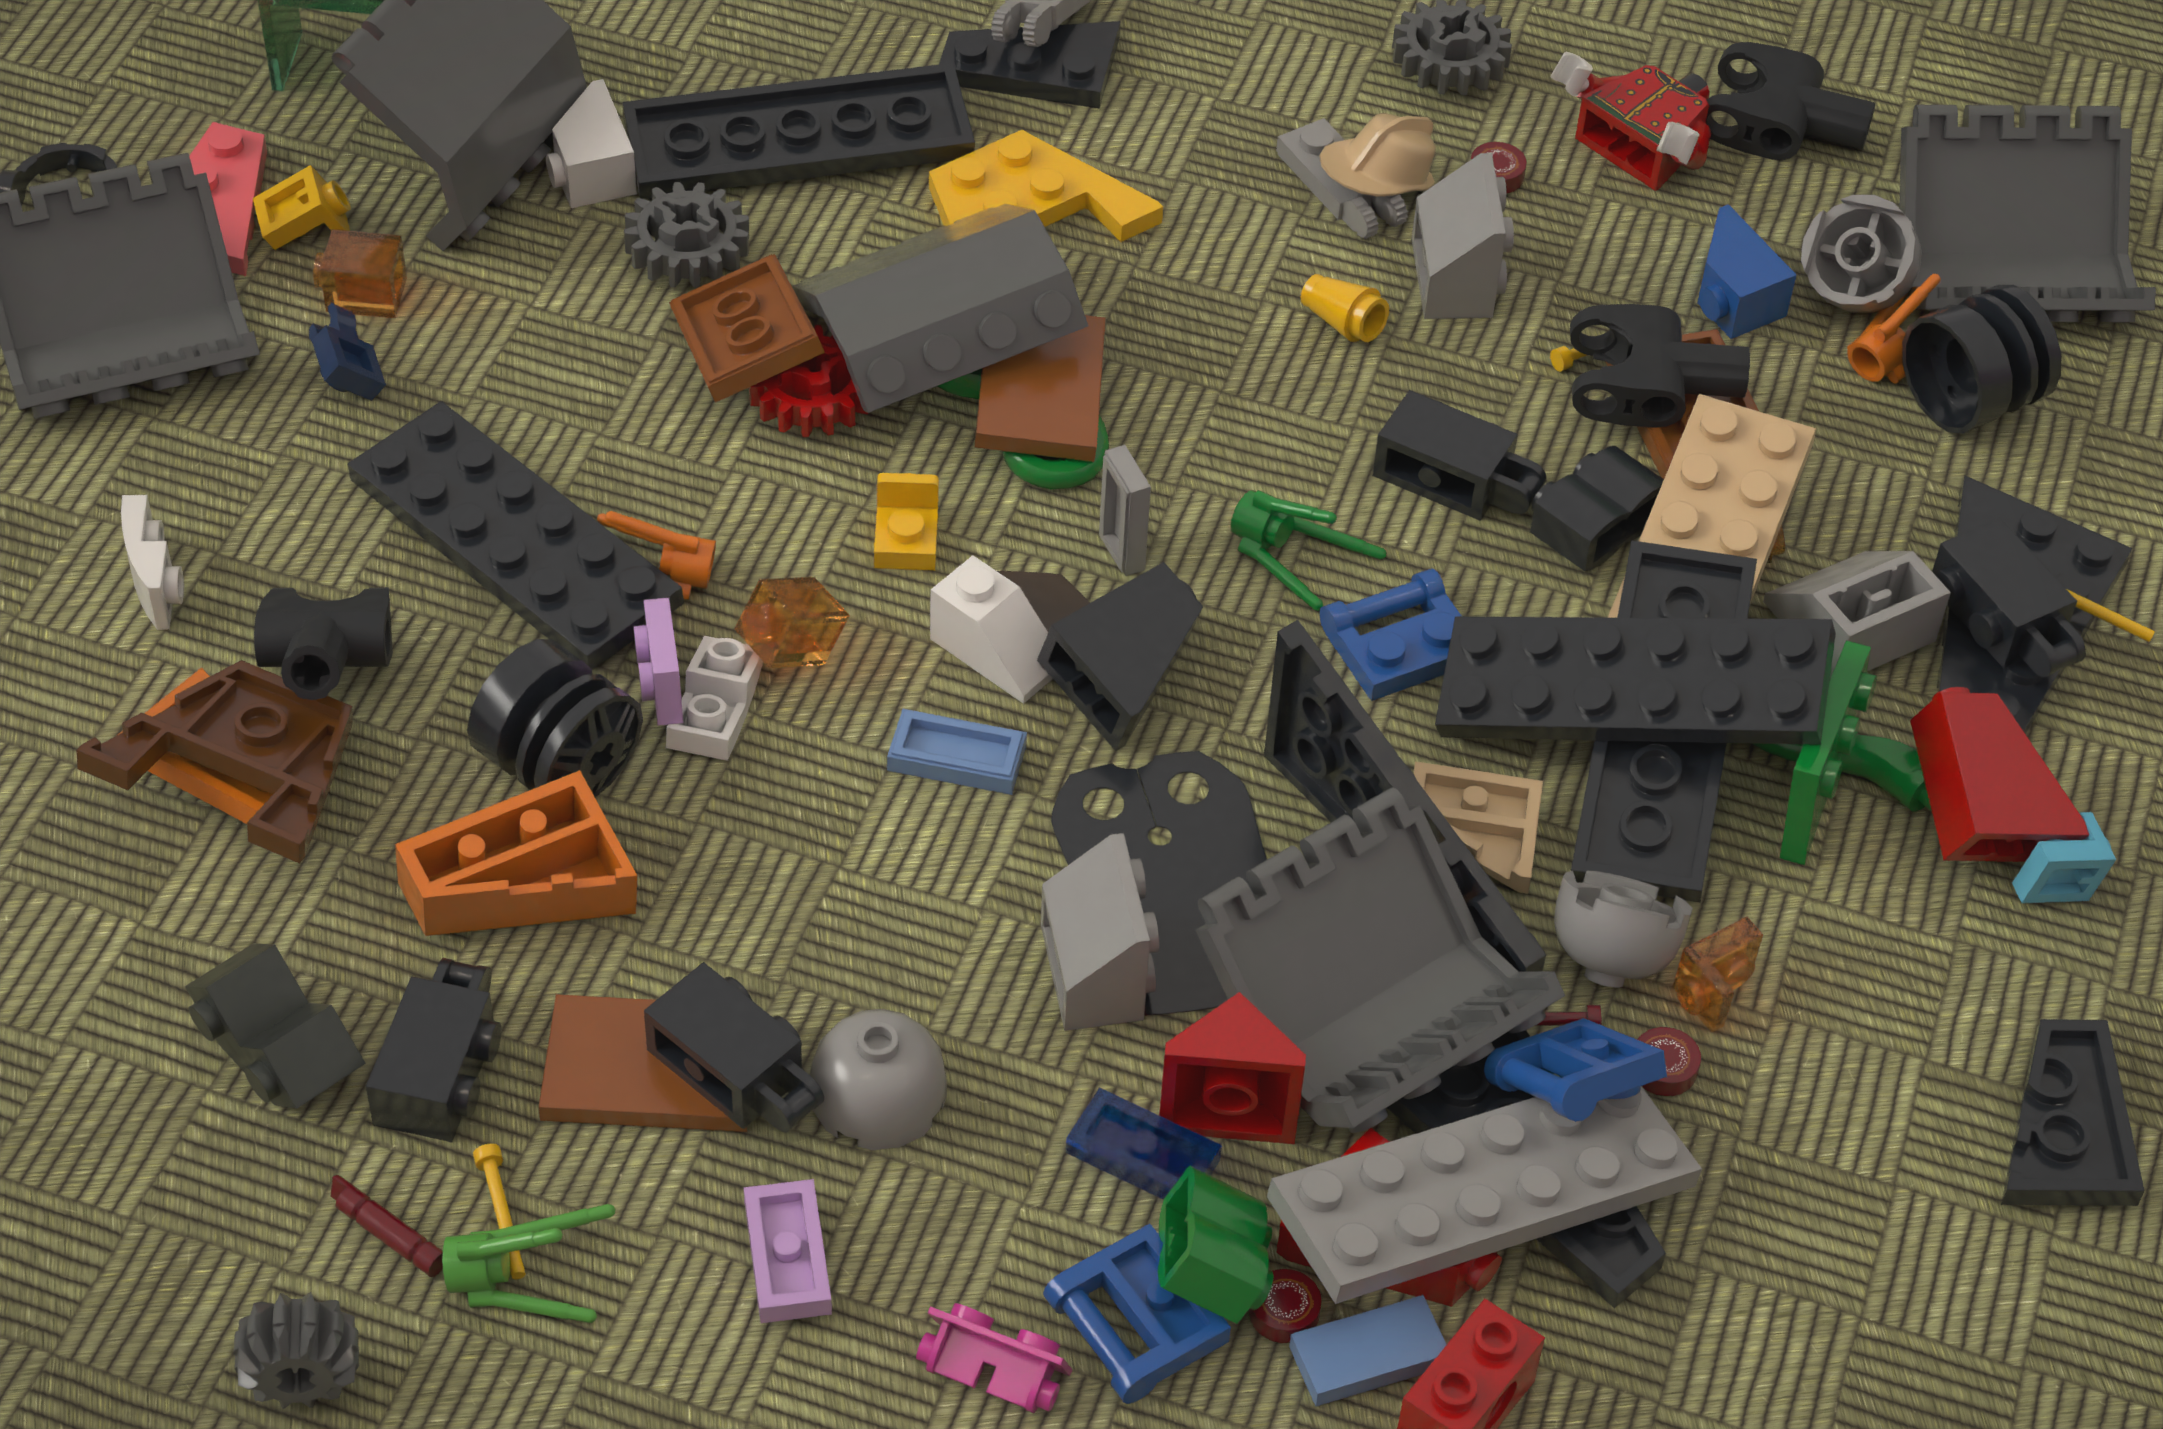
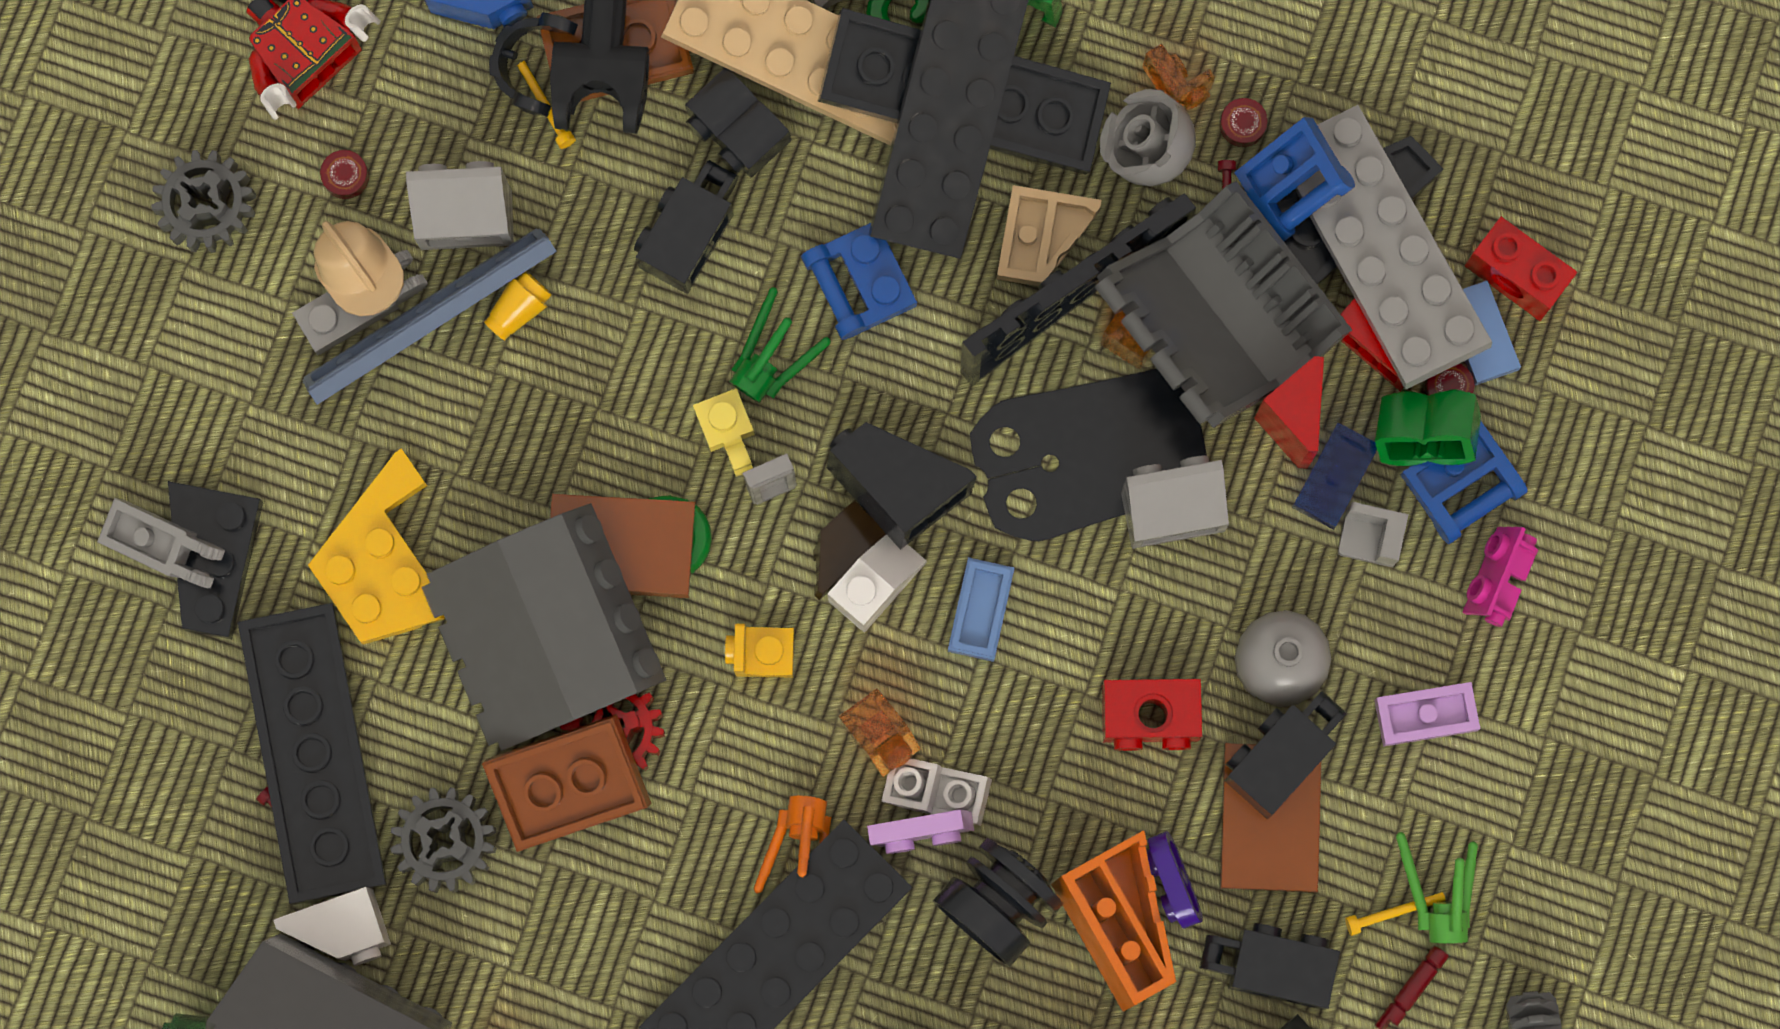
camera: 85 degrees left, 30 degrees up
(567, 939) = (1180, 899): none -> dark purple plate
(805, 918) = (1176, 697): none -> red brick
(1055, 1198) = (1372, 534): none -> light grey panel
(1198, 498) = (726, 425): none -> light yellow plate
(1329, 227) = (428, 315): none -> sand blue tile
(1682, 302) = (502, 51): none -> black piece

